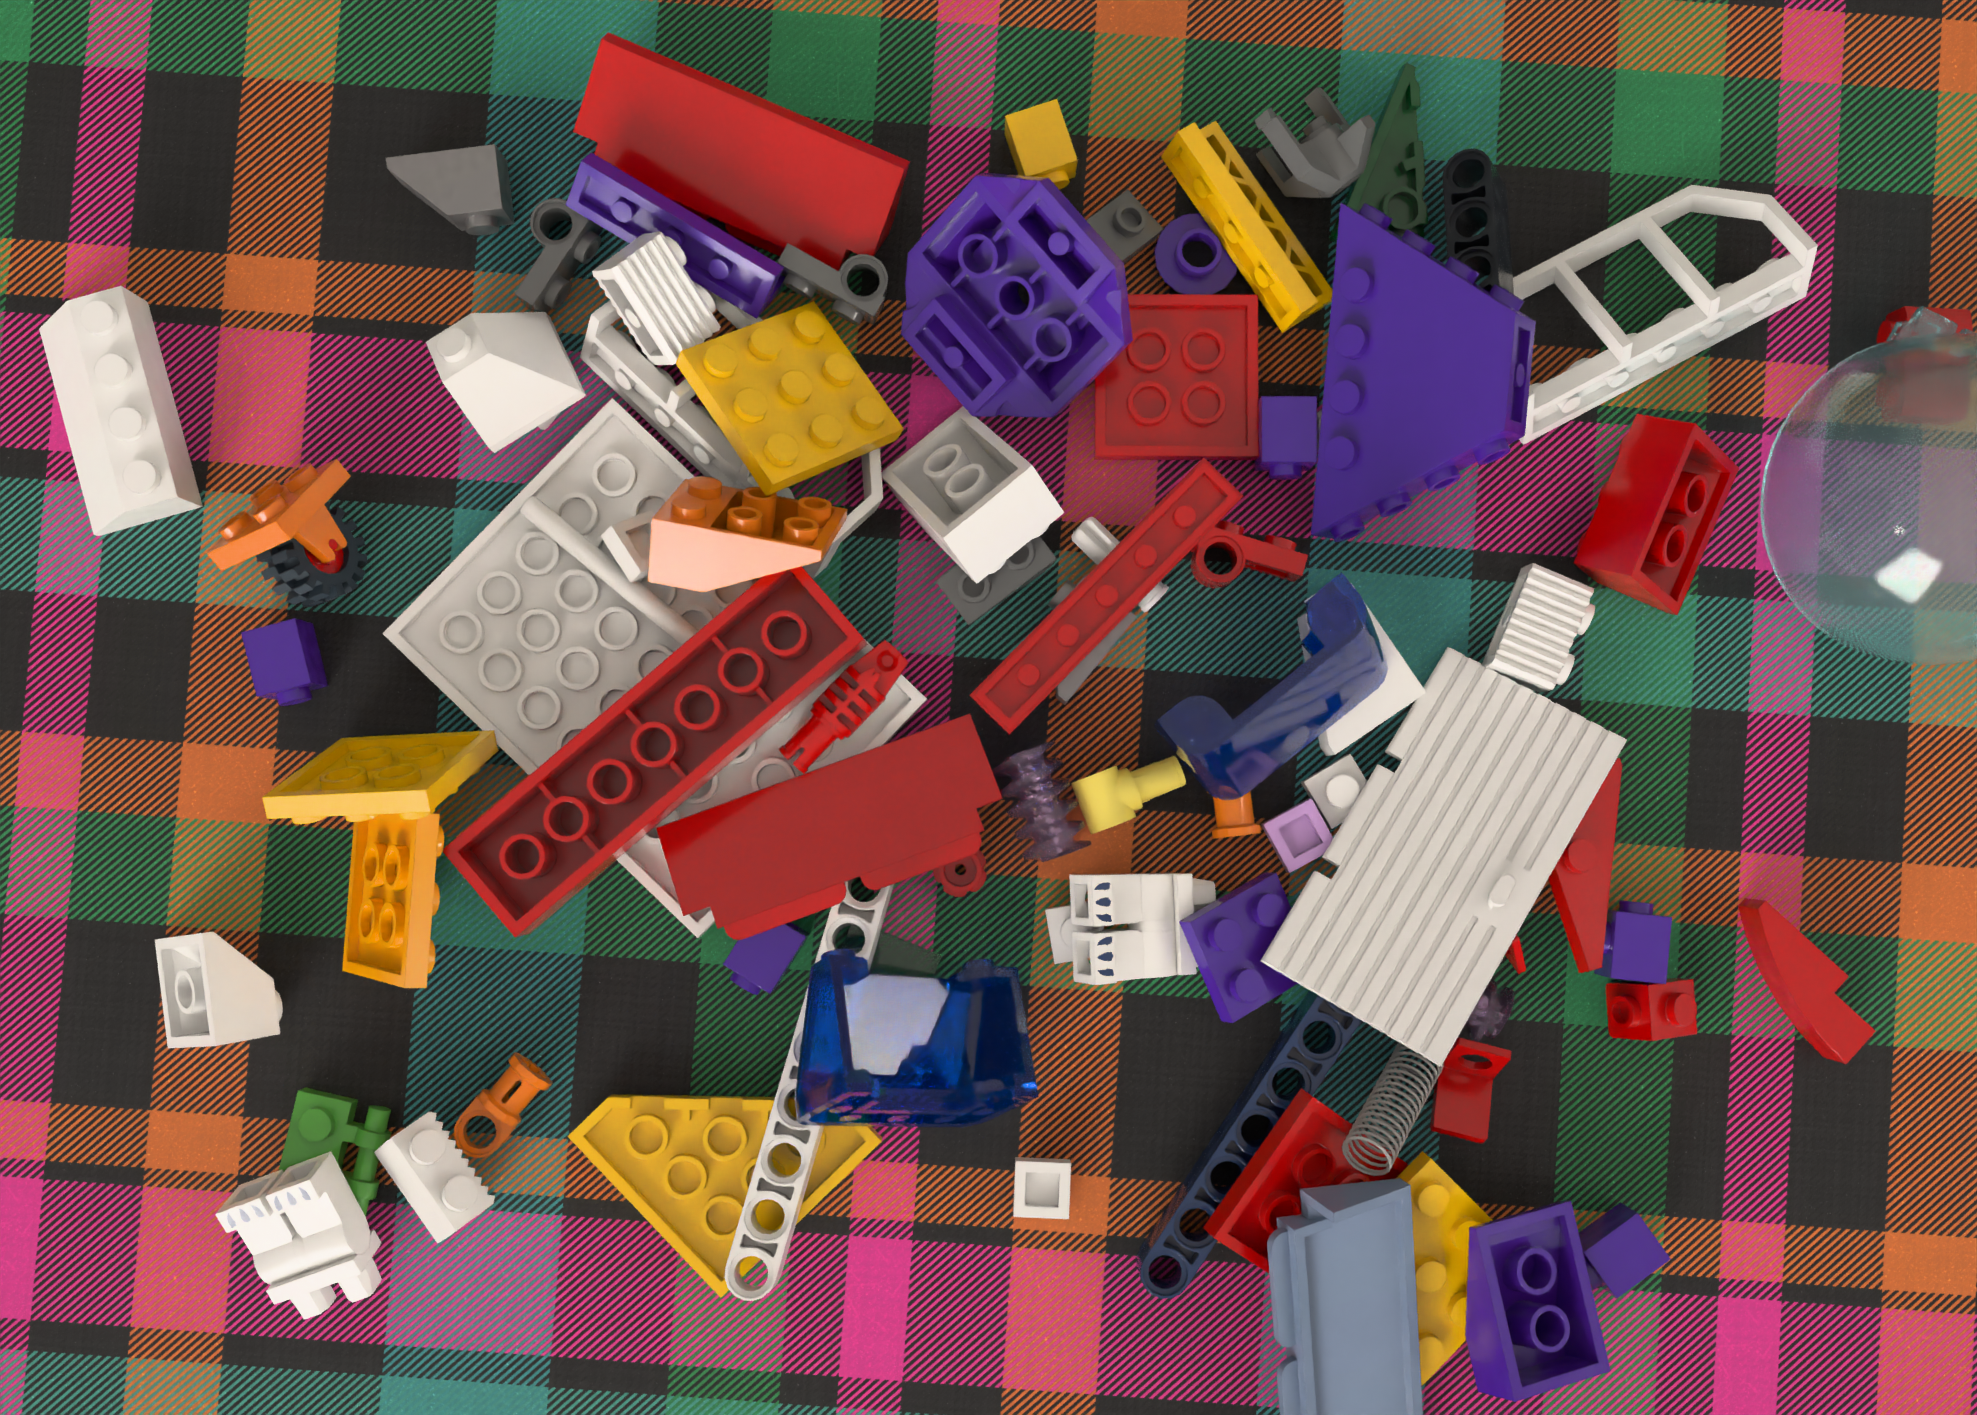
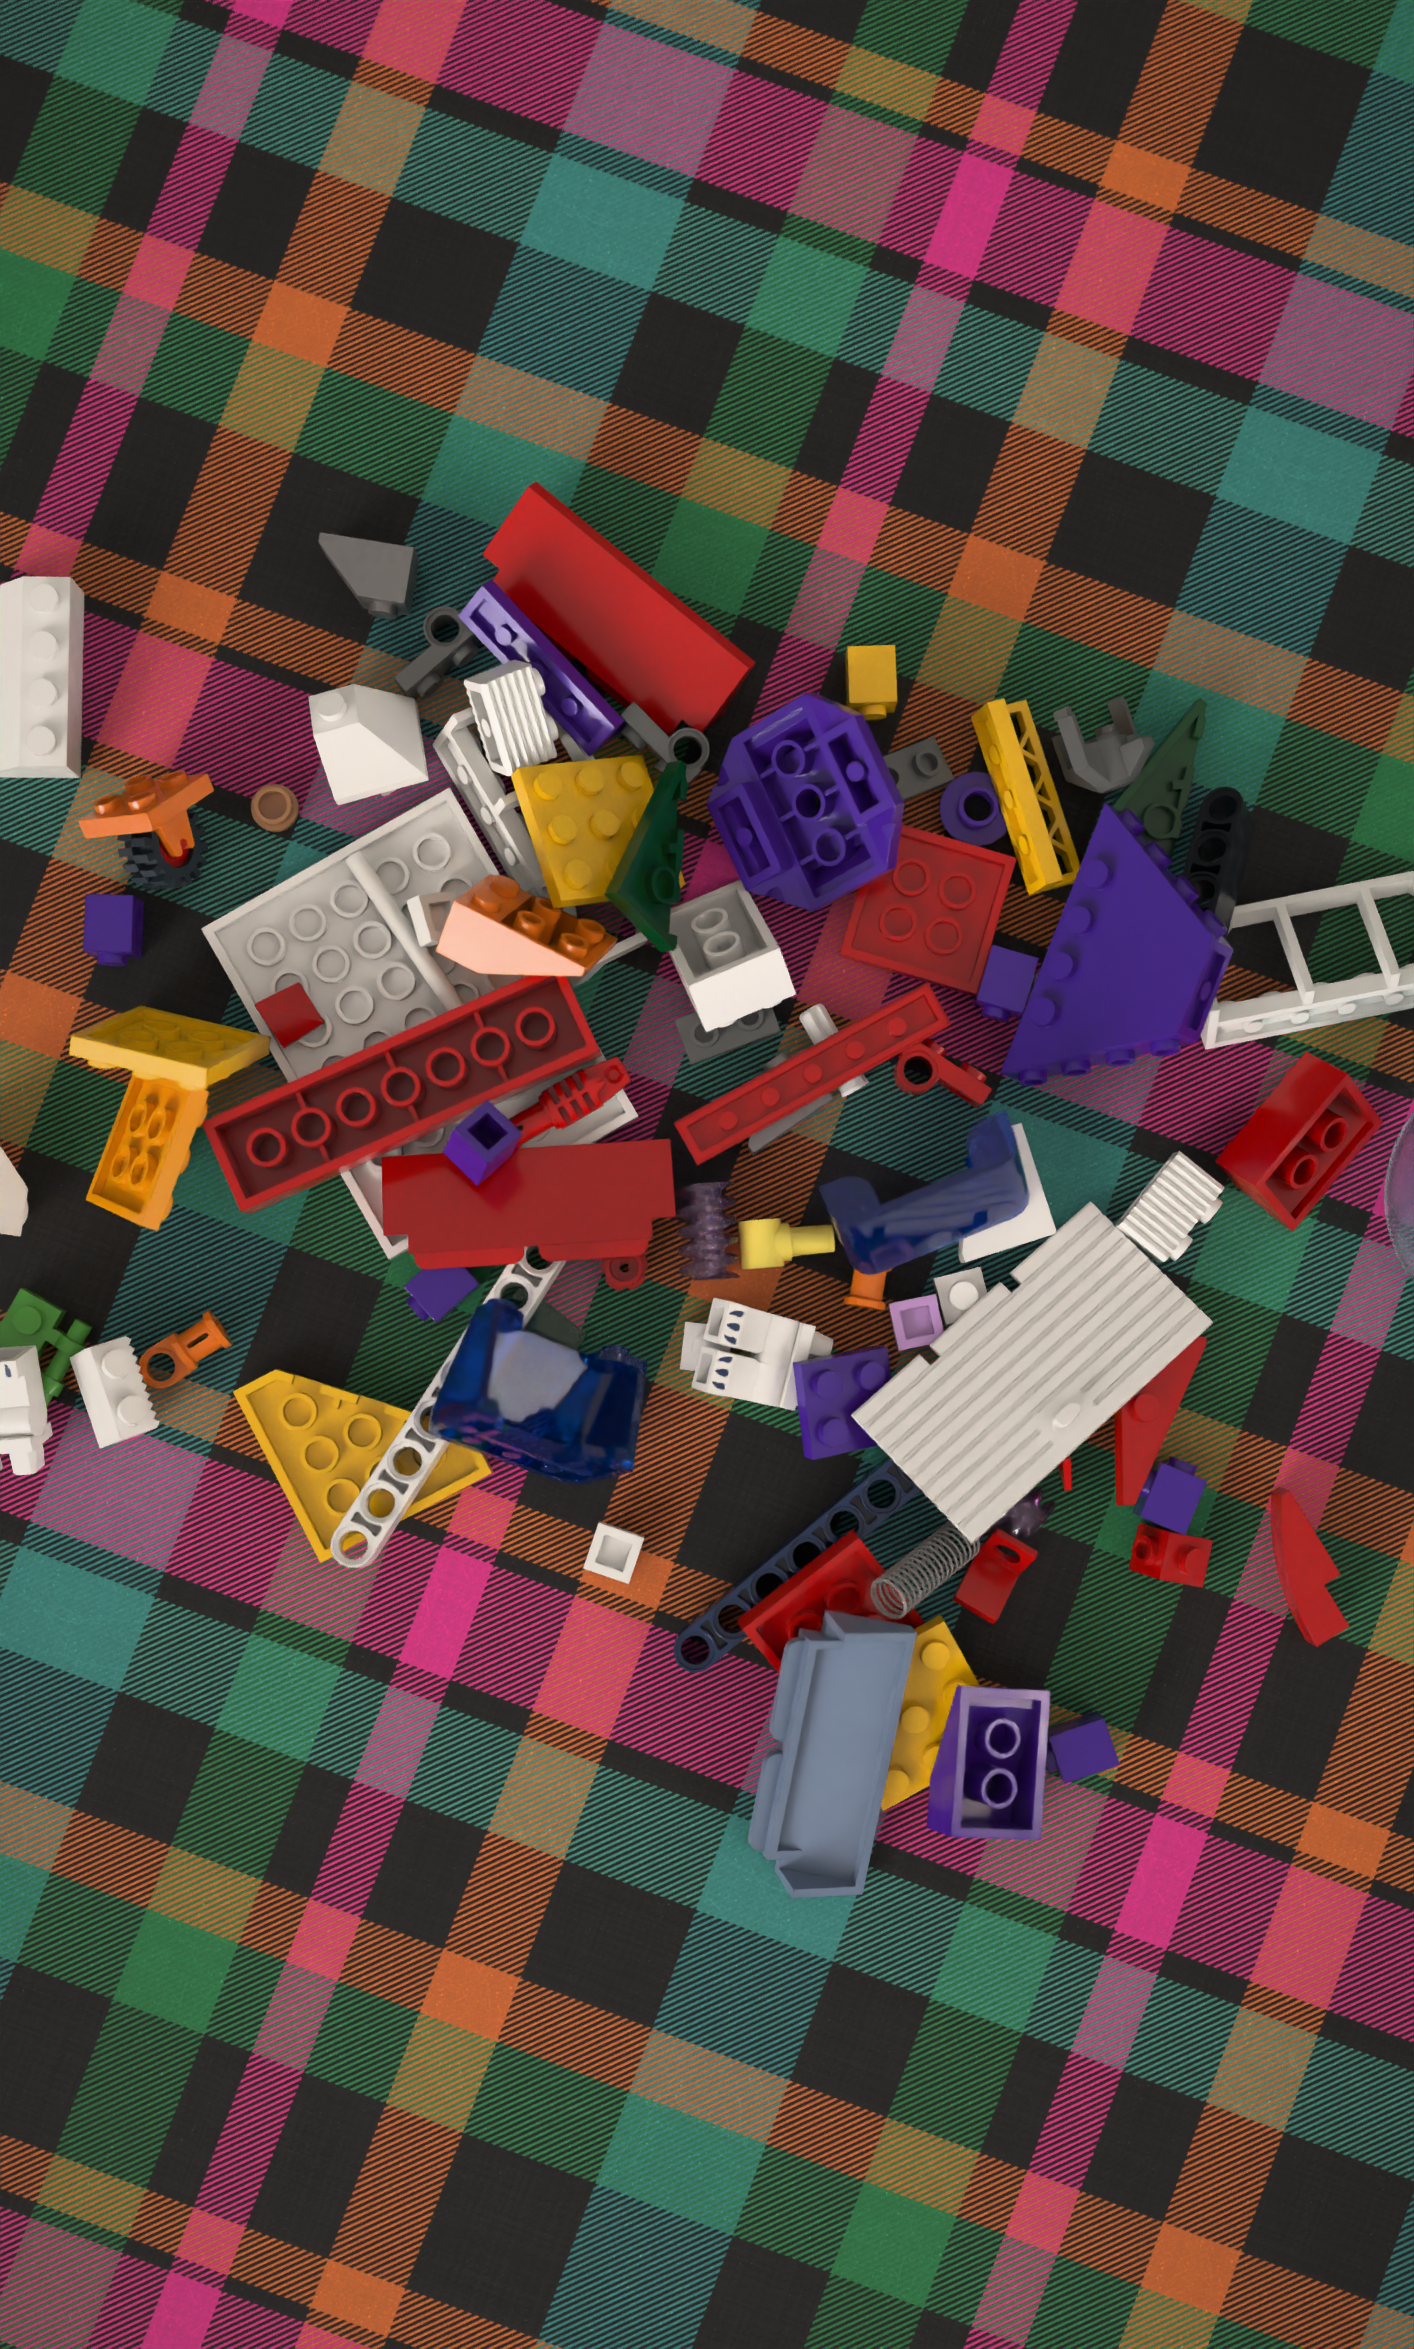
camera: 25 degrees right, 0 degrees up
(426, 477) = (275, 808): none -> medium nougat plate
(508, 699) = (290, 1014): none -> red slope
(763, 779) = (482, 1142): none -> dark purple brick
(860, 413) = (651, 865): none -> dark green wing

